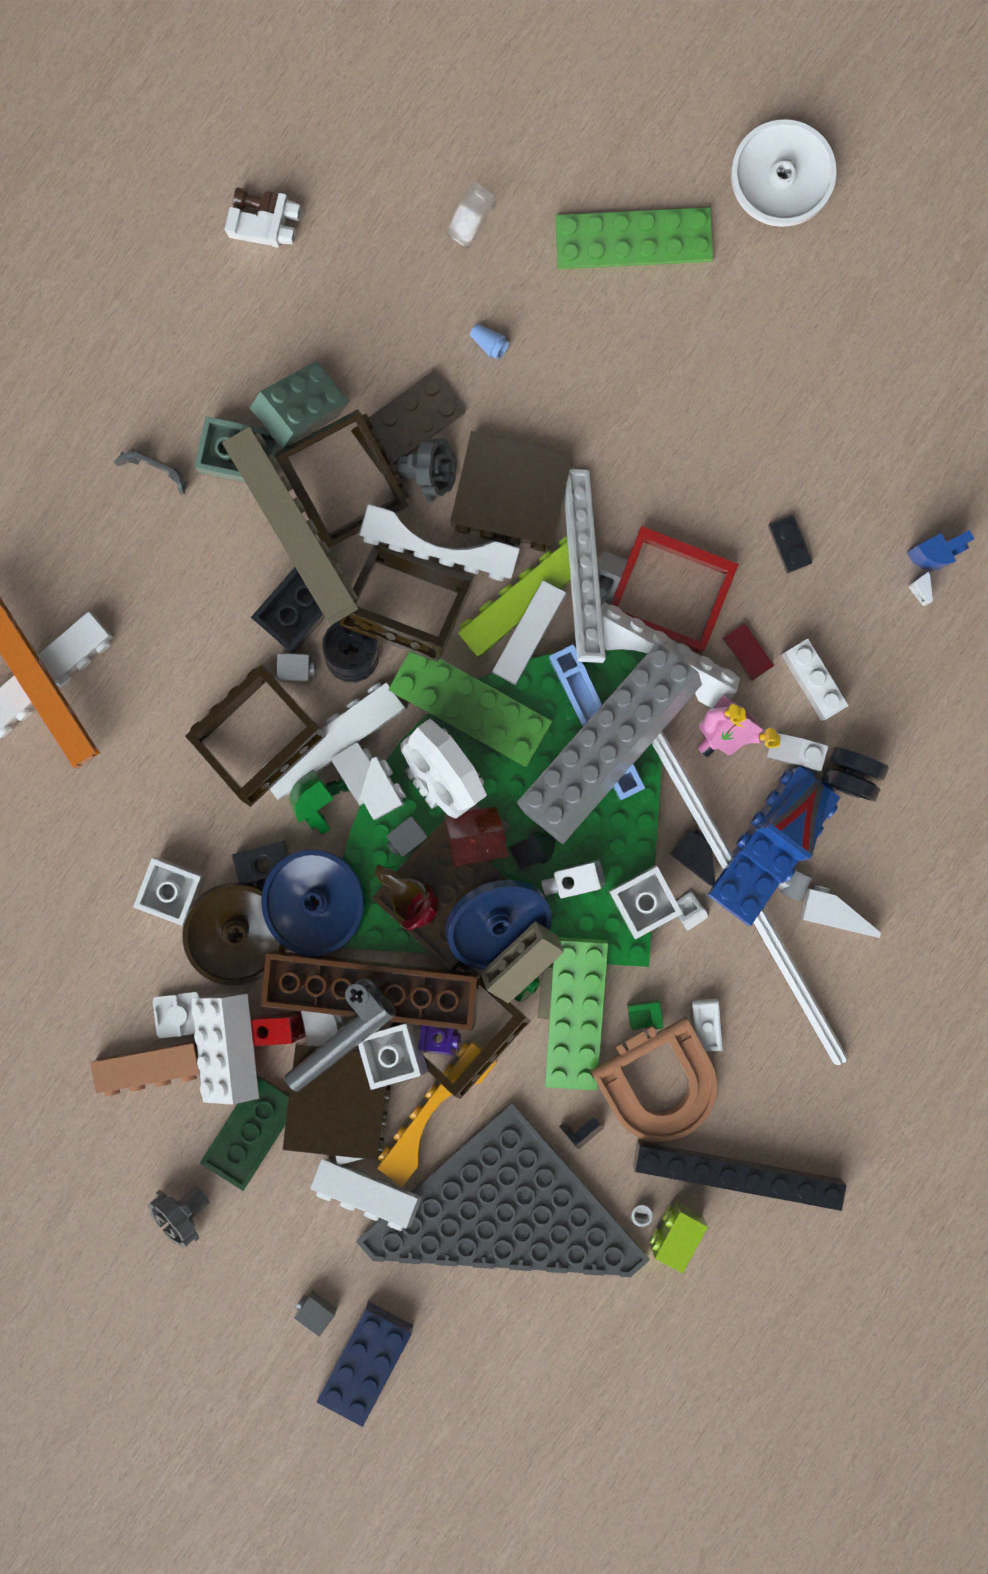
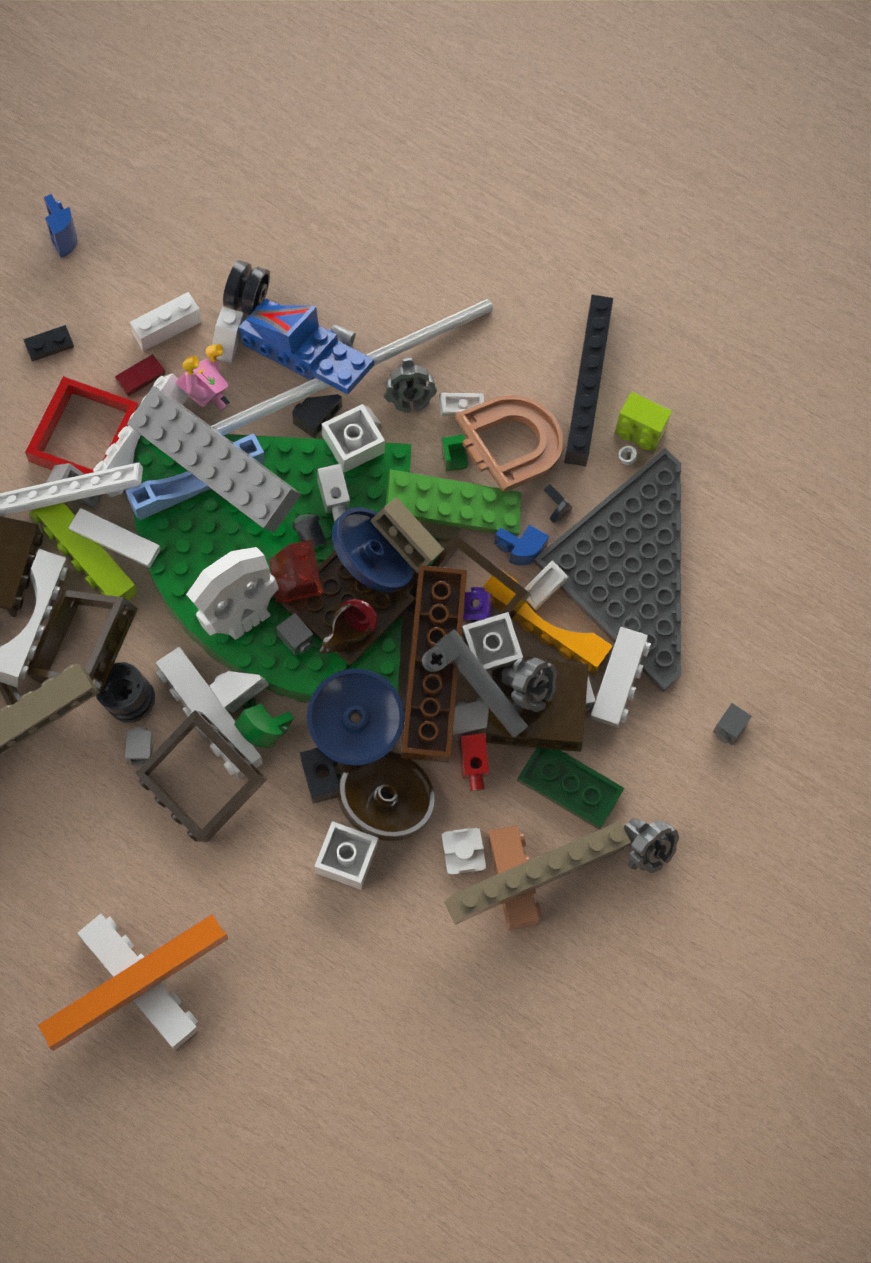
camera: 90 degrees left, 20 degrees down
(140, 1095) = (536, 872): none -> dark tan brick
(225, 1048) = (492, 800): white brick -> none
(290, 613) = (83, 744): black brick -> none
(342, 1095) = (530, 683): none -> dark grey piece
(365, 1364) = (774, 680): dark blue brick -> none
(379, 791) = (252, 652): white slope -> none
(471, 707) = (165, 601): bright green plate -> none
(480, 1113) = (545, 584): none -> white tile
(525, 1095) = (522, 549): none -> blue brick
(728, 965) = (410, 385): none -> dark grey piece
(832, 911) = (364, 306): white slope -> none
(922, 589) = (92, 242): white slope -> none

